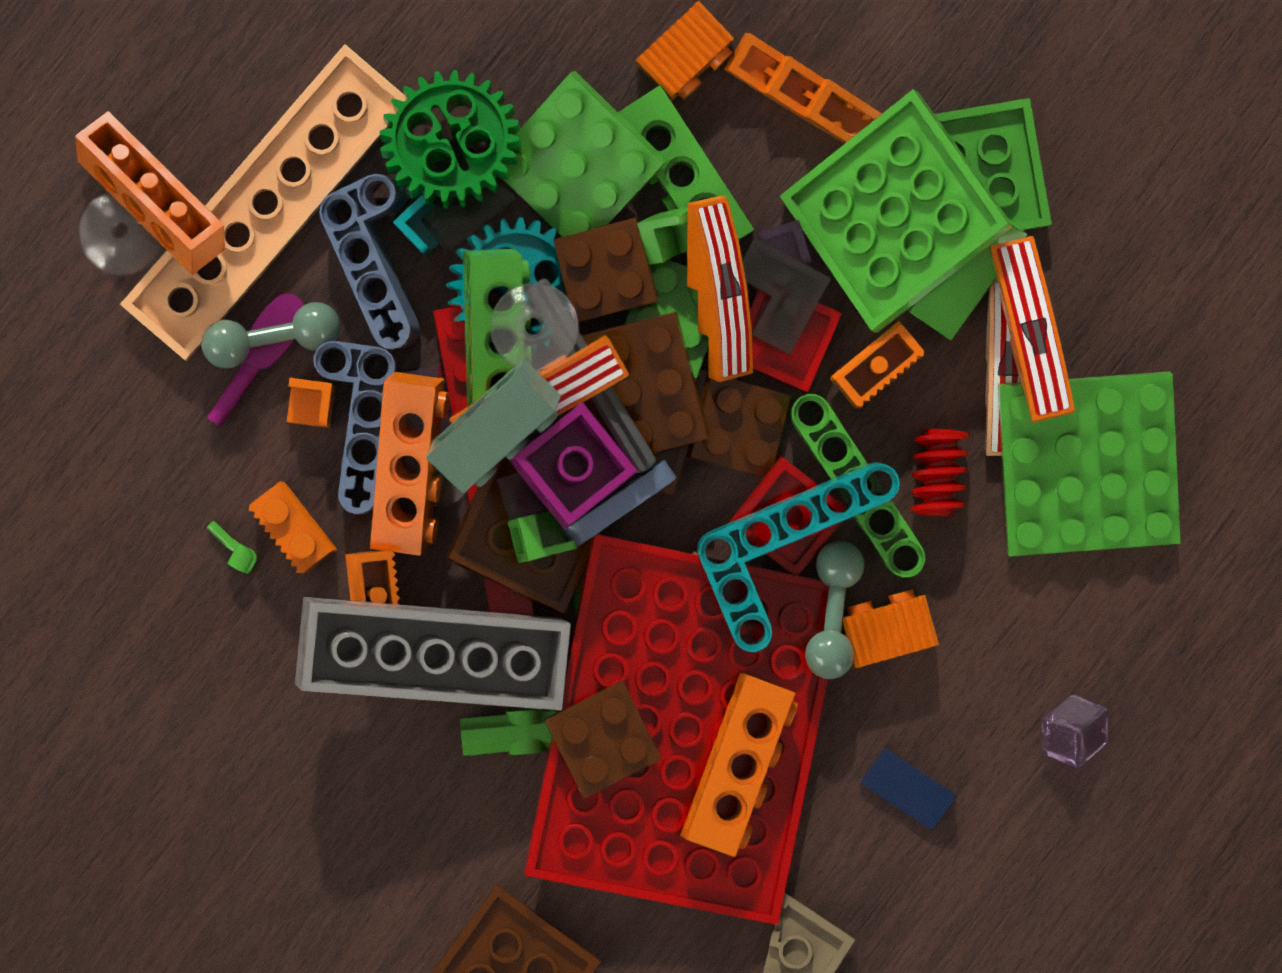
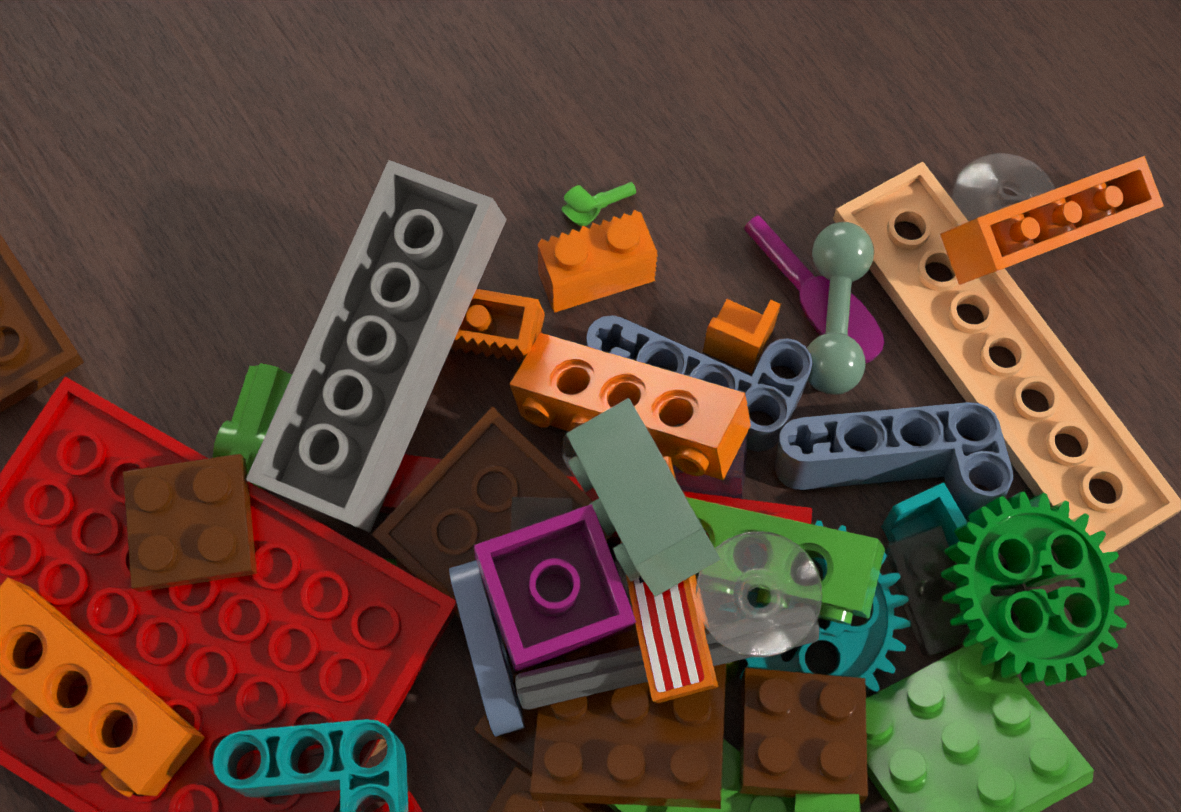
camera: 105 degrees right, 20 degrees down
(538, 537) = (474, 521): bright green panel -> none

